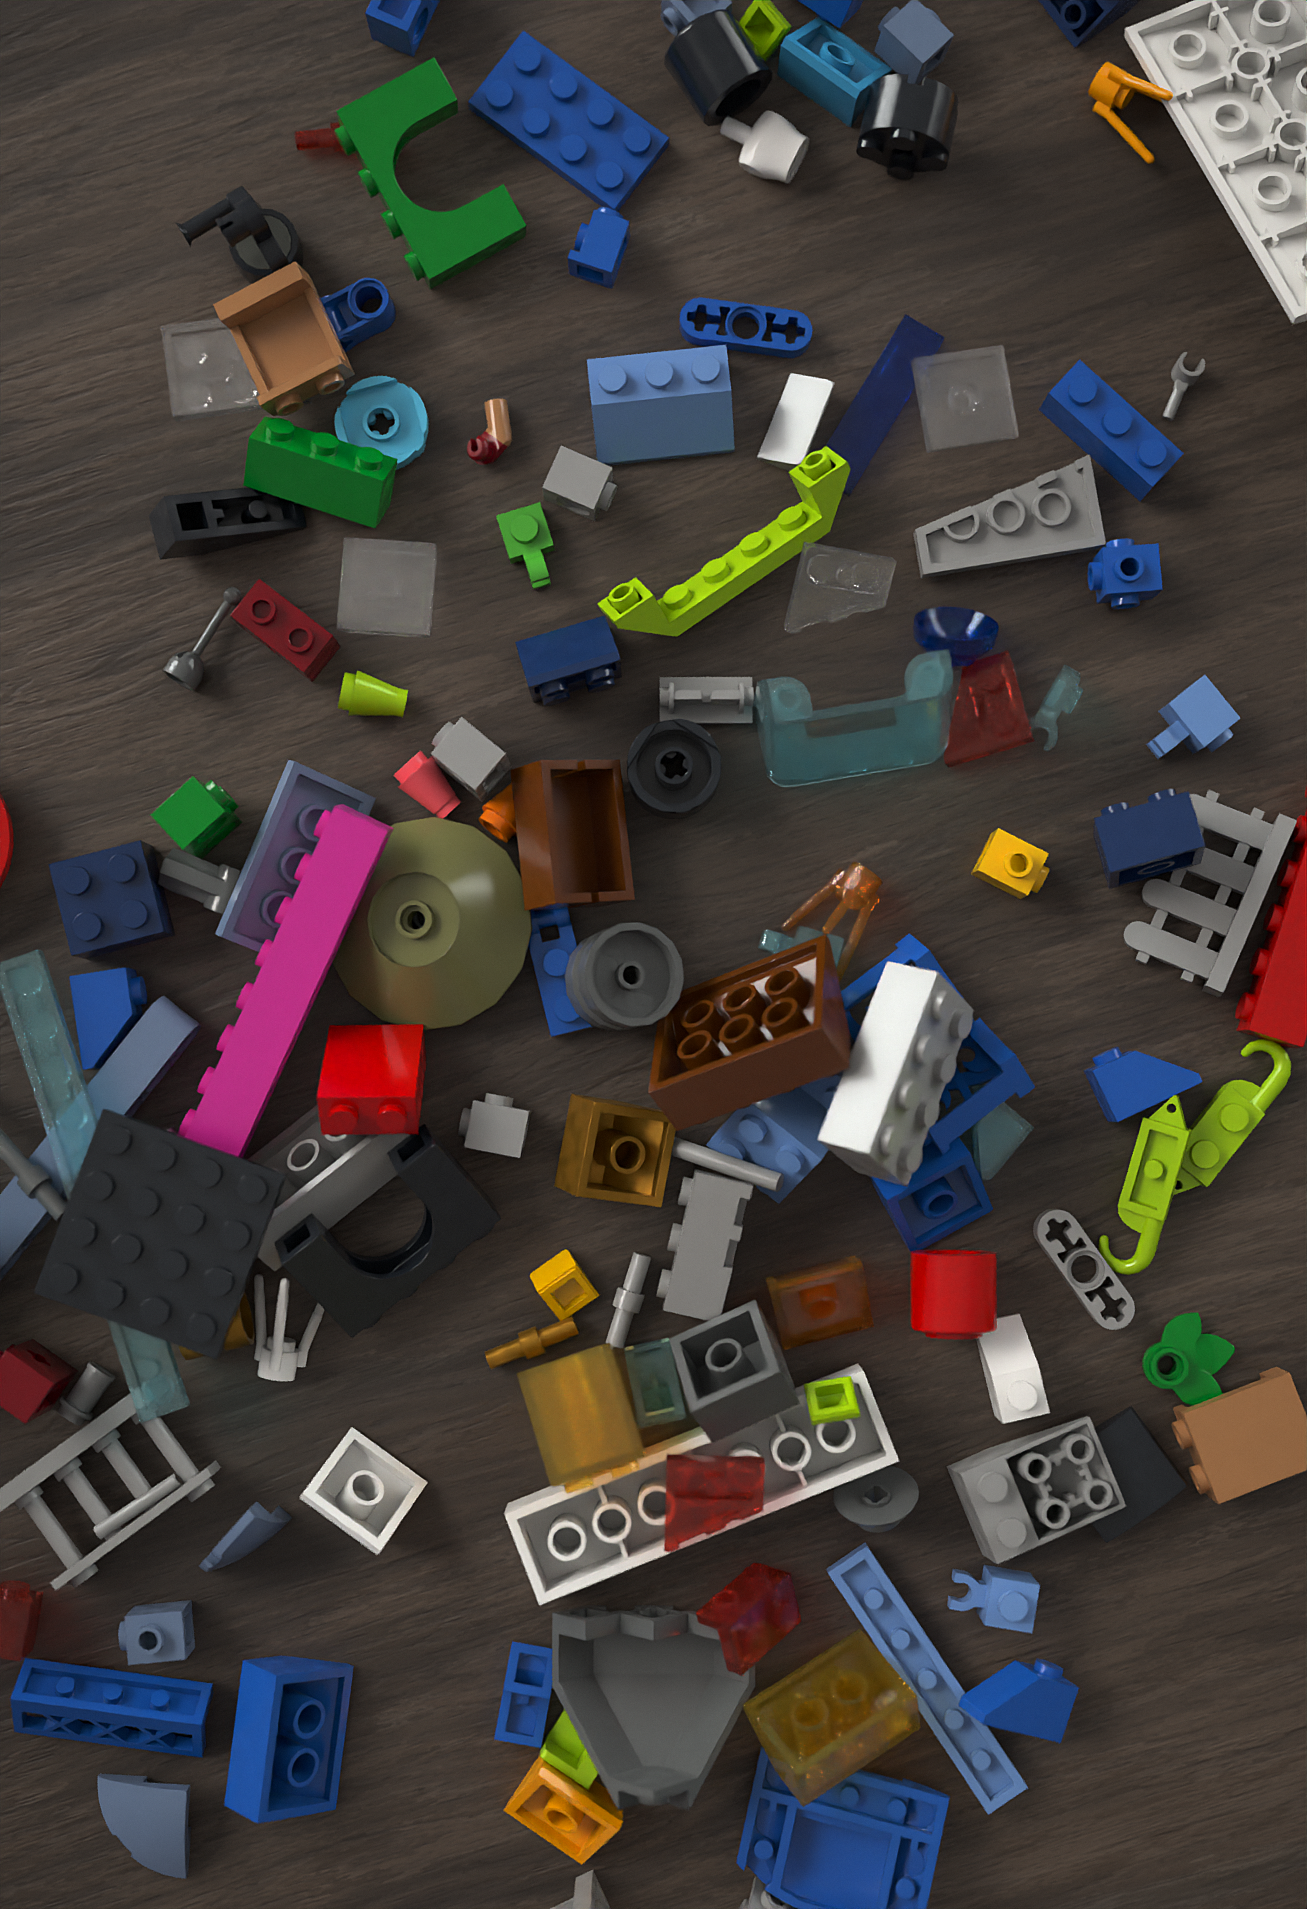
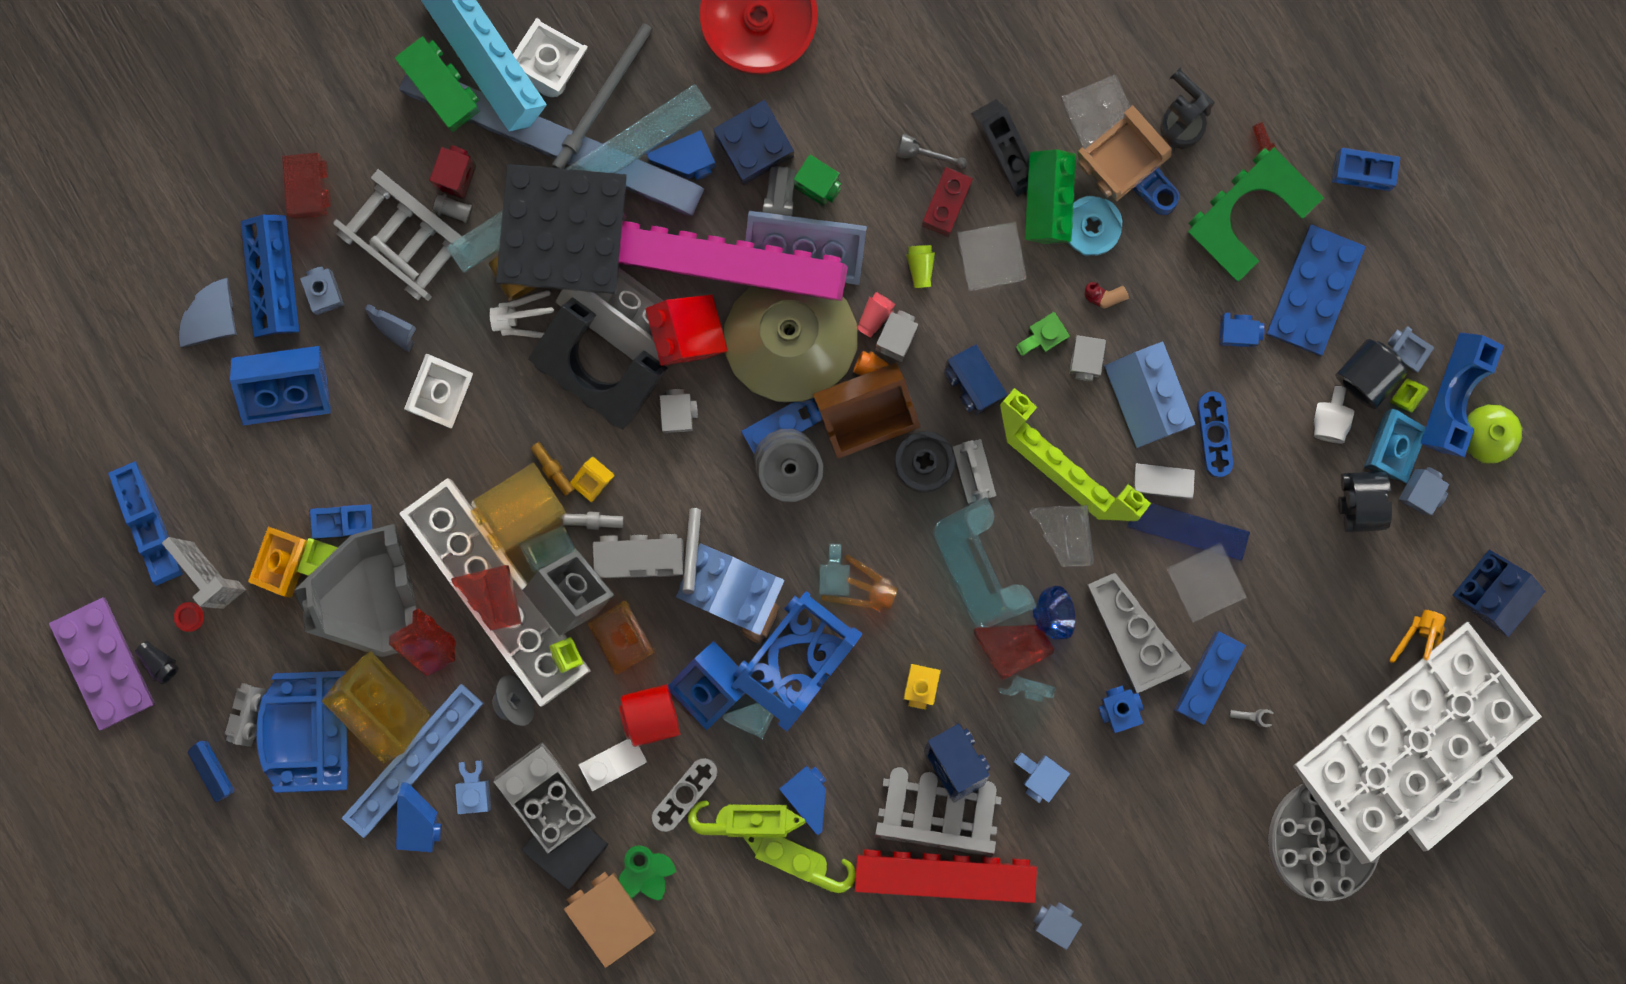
camera: 80 degrees right, 0 degrees up
(615, 1151) = (681, 488): pearl gold slope -> none
(751, 1035) = (772, 549): reddish brown slope -> none
(897, 1073) = (771, 642): light grey brick -> none

